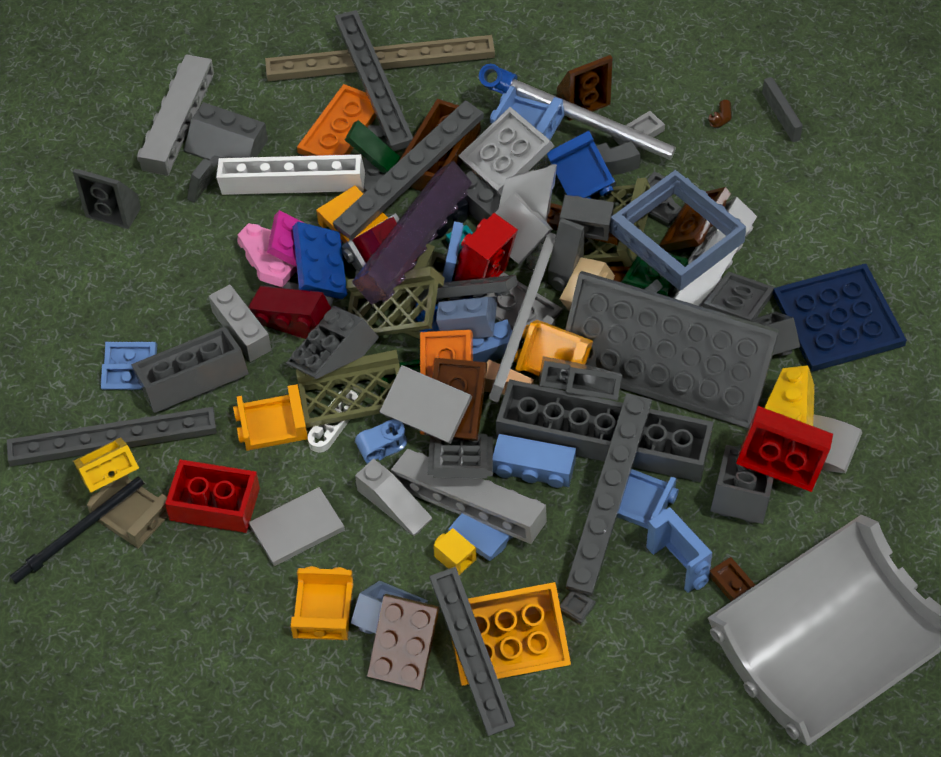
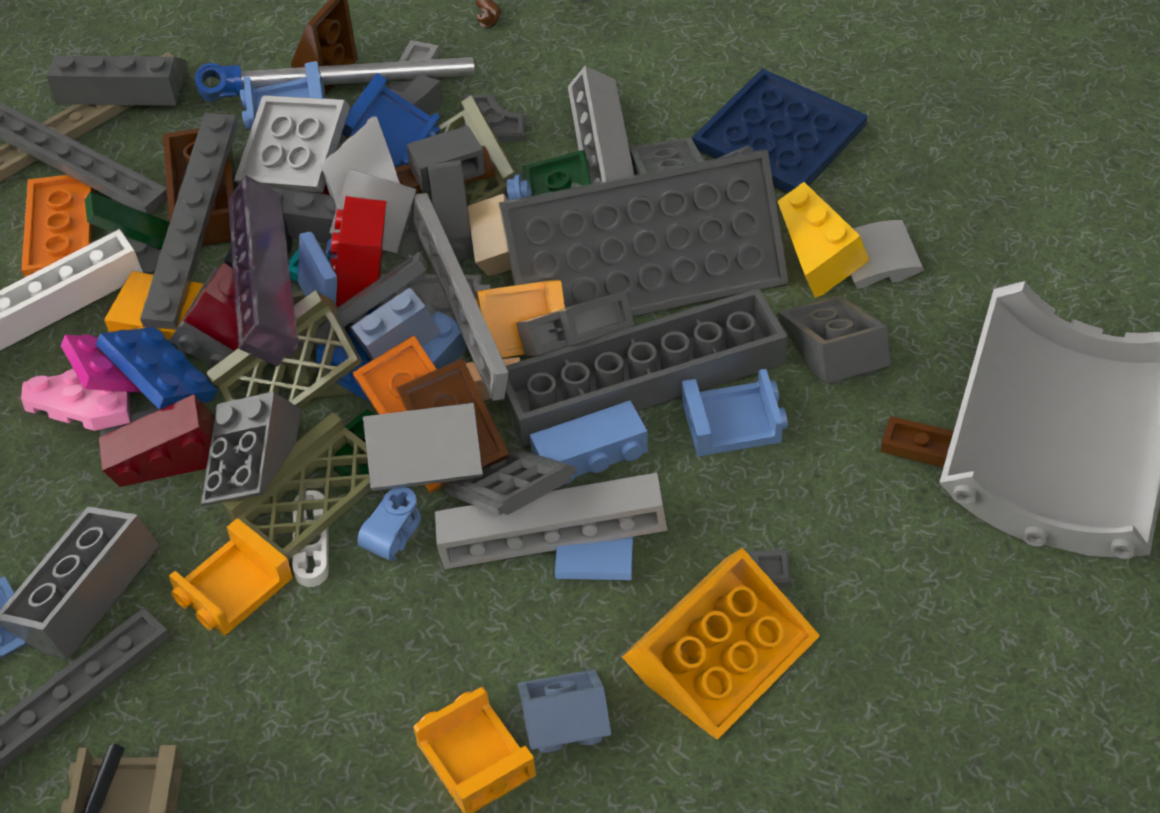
camera: 35 degrees left, 5 degrees down
(98, 463) = (45, 764): yellow window -> none
(212, 496) = (230, 709): red brick -> none
(240, 322) = (79, 484): light grey brick -> none
(296, 526) = (362, 684): light grey tile -> none
(391, 497) = (455, 578): light grey slope -> none
(403, 641) = (618, 727): plate -> none
(443, 40) = (116, 80): none -> dark grey slope
(454, 551) = (583, 593): yellow brick -> none
(472, 651) = (712, 685): dark grey plate -> none
(609, 495) = (714, 427): dark grey plate -> none
(621, 264) = (518, 188): none -> medium blue plate
(623, 229) = (555, 155): sand blue window -> none
(670, 531) = (838, 431): medium blue panel -> none
(689, 226) = (554, 113): reddish brown plate -> none
(785, 448) = (856, 271): red brick -> none

